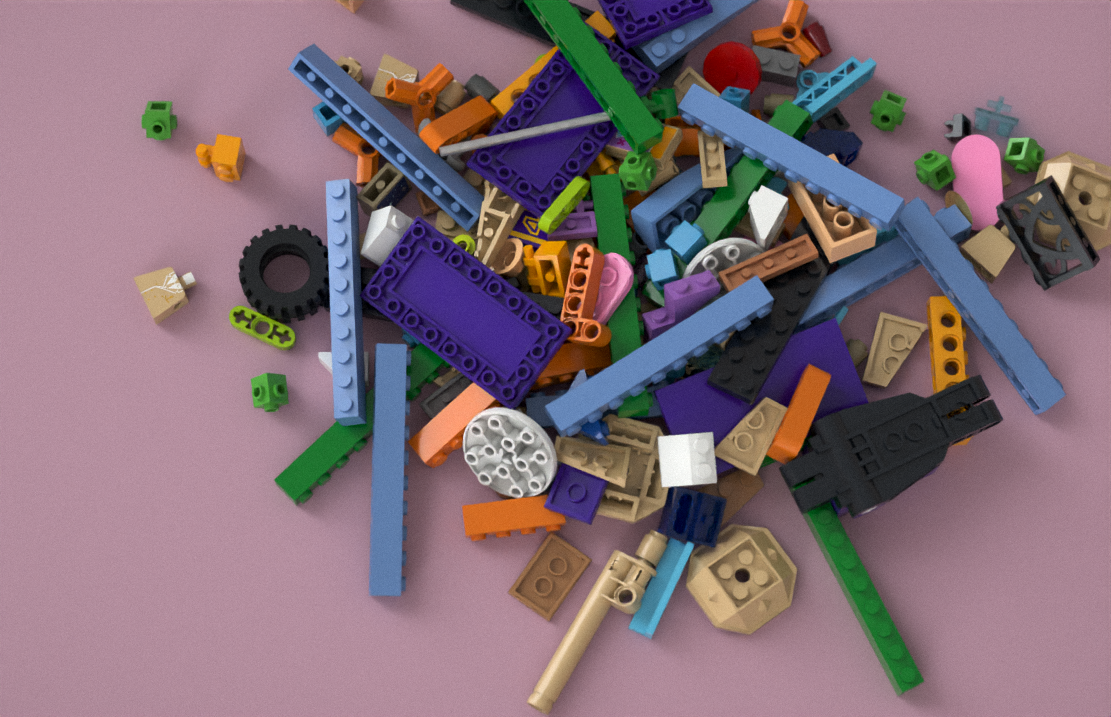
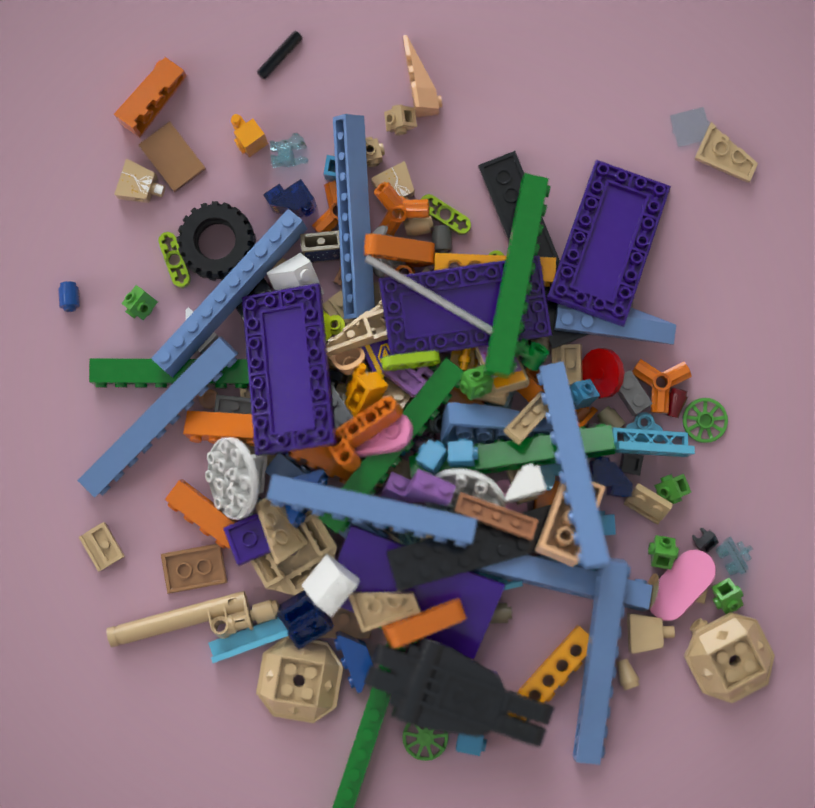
camera: 55 degrees right, 10 degrees up
(101, 207) = (150, 97): none -> orange wedge
(159, 120) = (234, 75): bright green brick -> none
(170, 242) = (172, 156): none -> medium nougat tile
(180, 69) = (279, 55): none -> black axle
(198, 447) = (68, 296): none -> blue brick
(271, 145) = (285, 151): none -> clear light blue animal
(310, 183) = (295, 198): none -> clear blue piece
(344, 23) = (400, 119): none -> tan brick
(417, 418) = (208, 399): none -> nougat tile
(449, 636) = (101, 546): none -> tan plate
(478, 58) = (435, 201): none -> lime beam
(772, 512) = (355, 658): none -> blue slope
(856, 33) = (705, 420): none -> bright green wheel
(882, 142) = (648, 504): none -> tan plate
(890, 347) = (526, 631): tan wing -> none
(898, 523) = (425, 738): none -> bright green wheel
(940, 485) = (471, 744): none -> dark azure brick
(1012, 302) = (627, 675): none -> tan cone
(1052, 200) = (706, 661): black fence -> none

